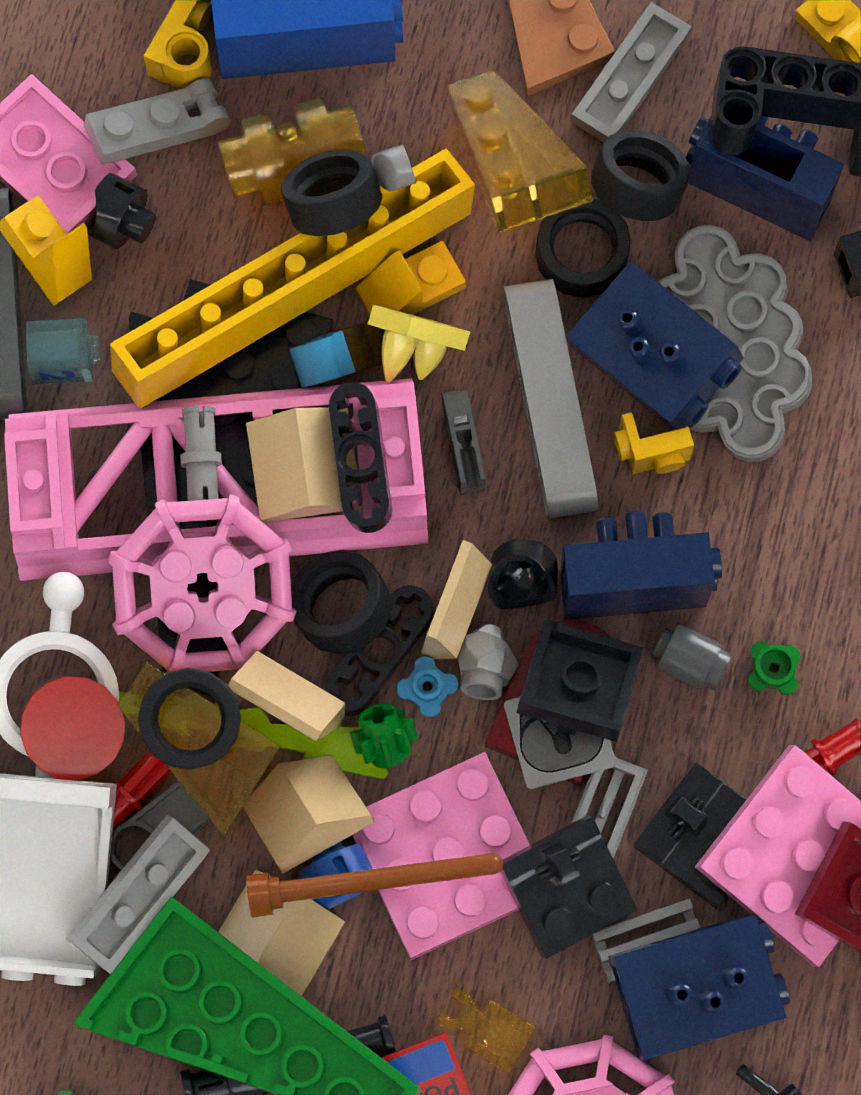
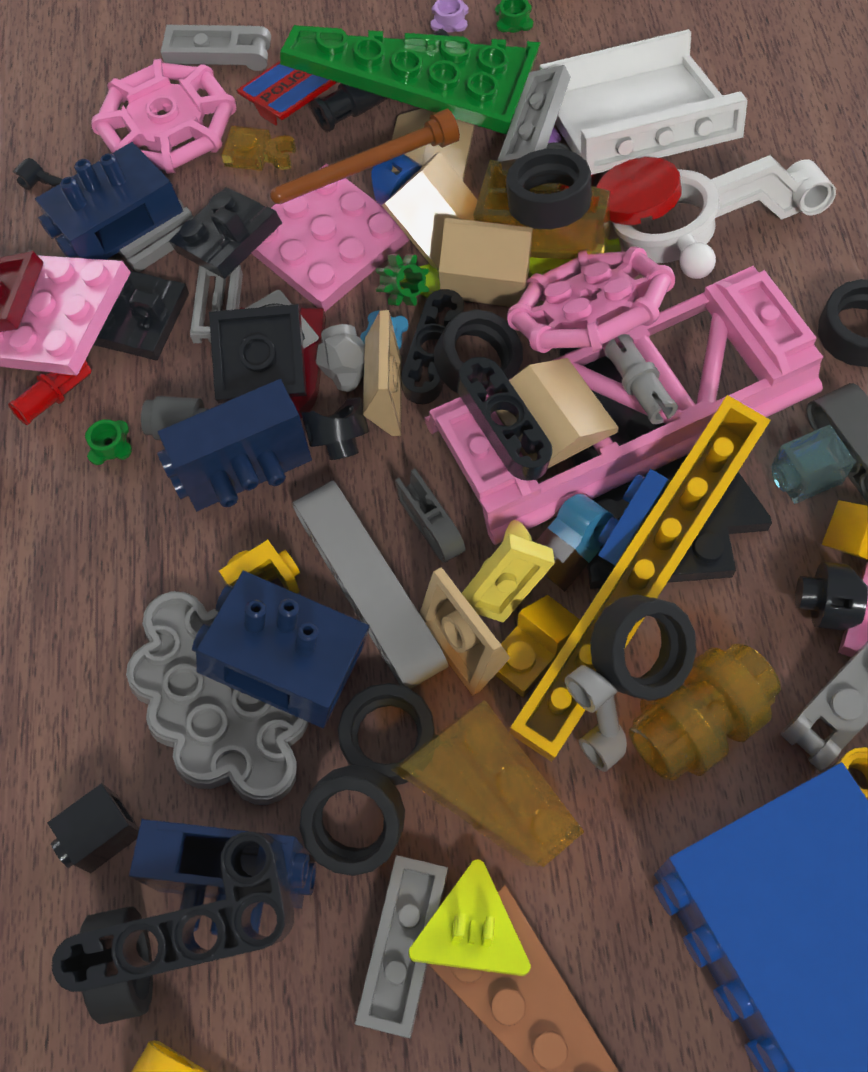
camera: 165 degrees right, 10 degrees down
(265, 337) = (642, 498): none -> blue wing
(477, 302) = (461, 633): none -> tan slope
(570, 60) = (472, 929): none -> neon yellow piece

